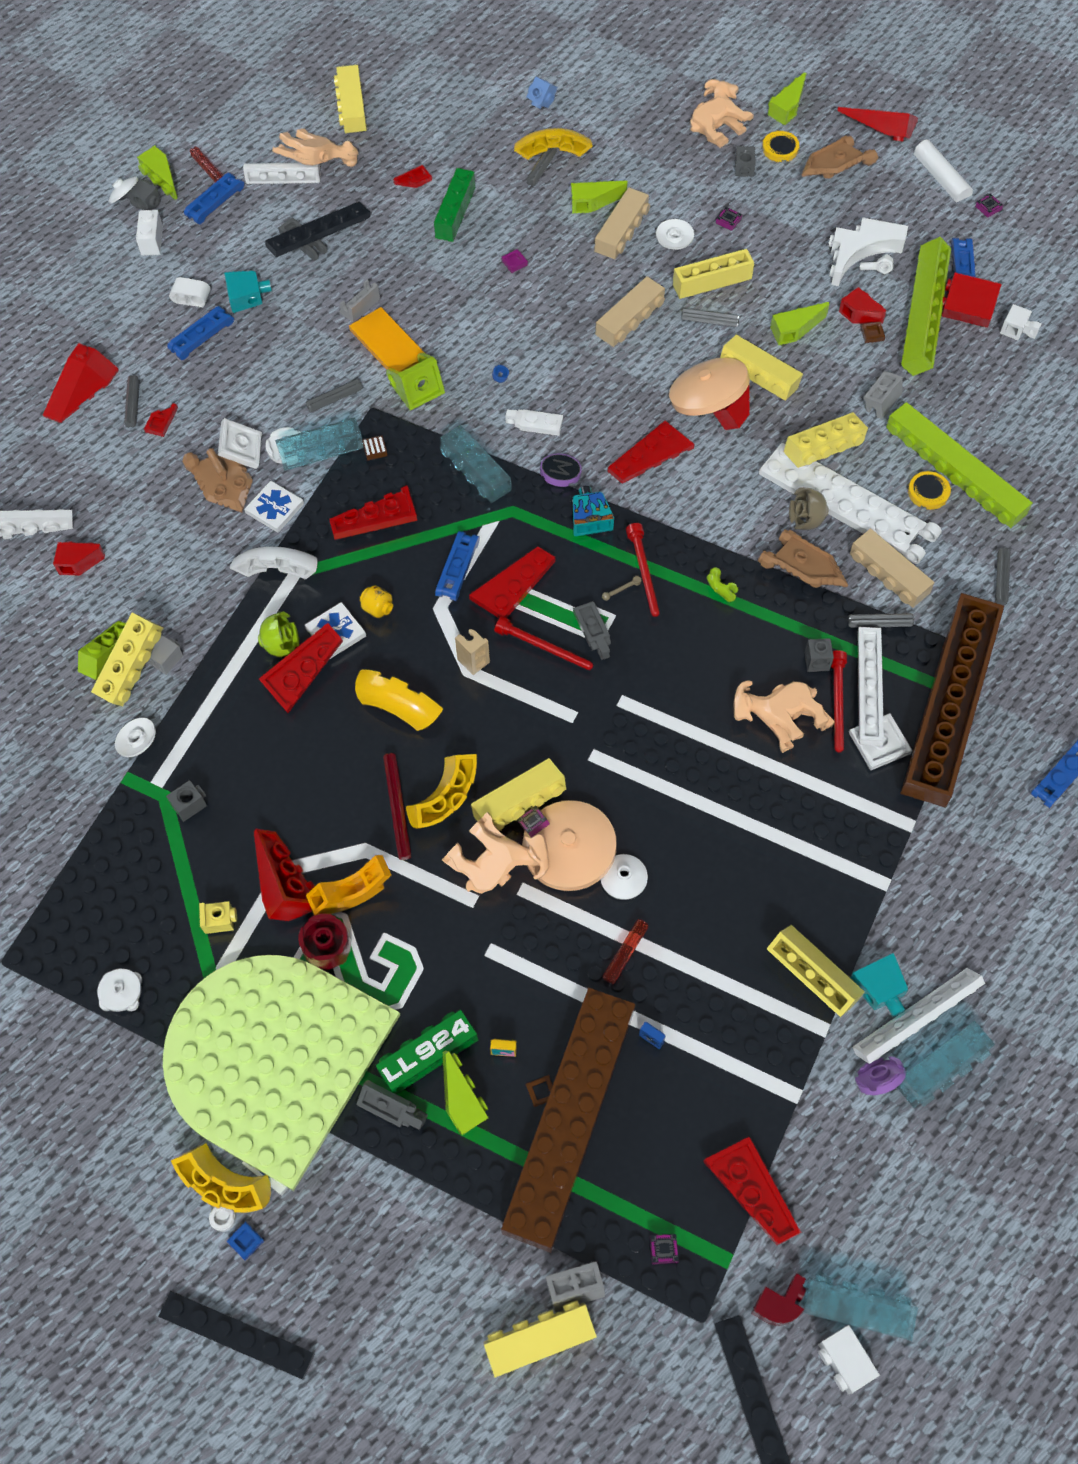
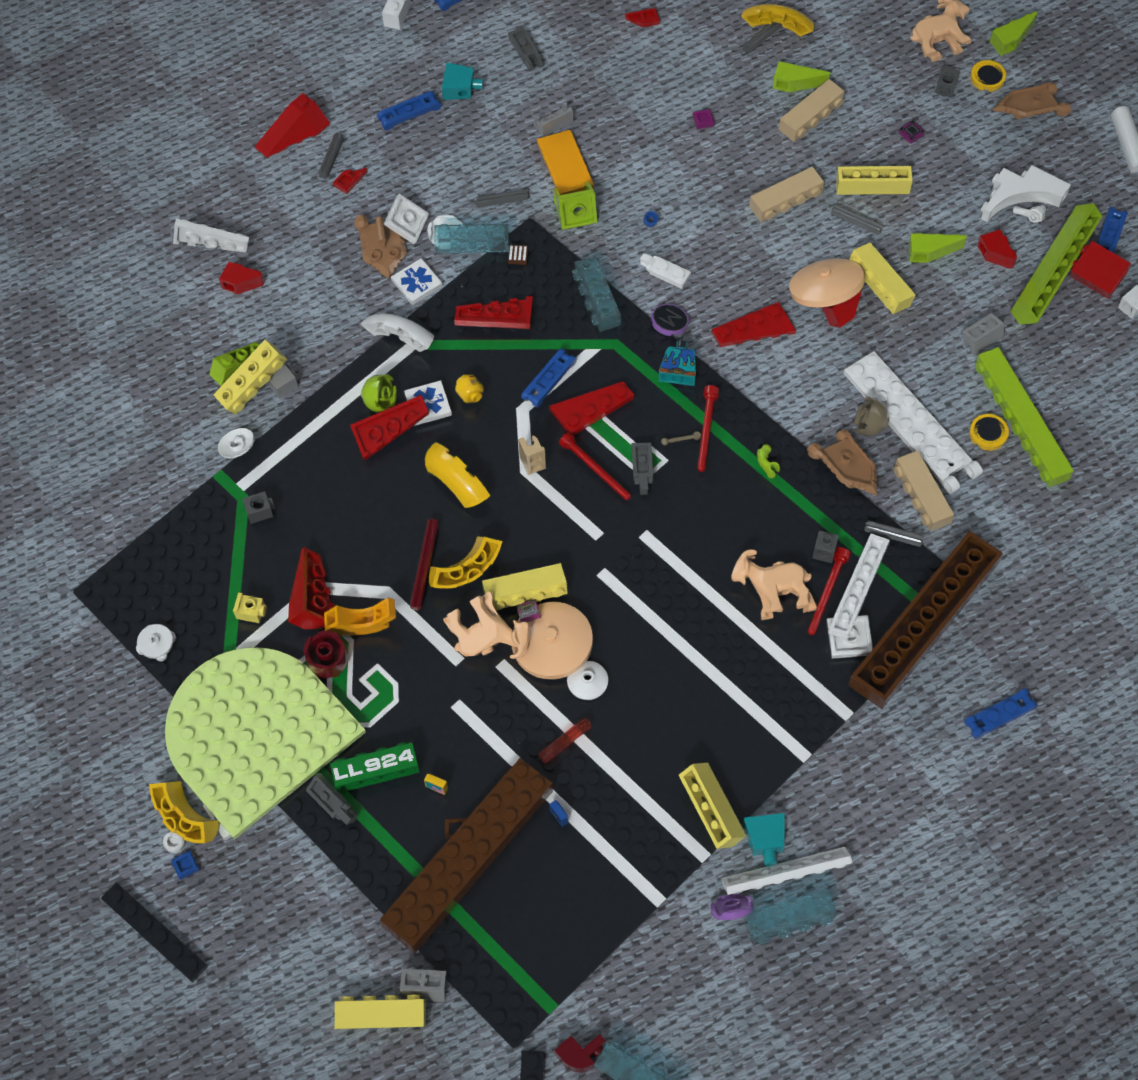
camera: 20 degrees right, 0 degrees up
(189, 292) = (412, 71): white beam -> none
(317, 229) = (541, 44): black plate -> none
(454, 205) = (669, 53): green brick -> none
(460, 1102) = (386, 816): lime slope -> none
(664, 1249) = (503, 980): tile -> none
(675, 234) = (855, 127): white dish -> none
(750, 1183) = (591, 952): red wing -> none
(825, 440) = (911, 360): light yellow brick -> none
(872, 332) = (999, 274): reddish brown tile -> none
(890, 123) = (1097, 82): red wedge -> none
(1003, 575) = (1021, 527): dark grey axle -> none

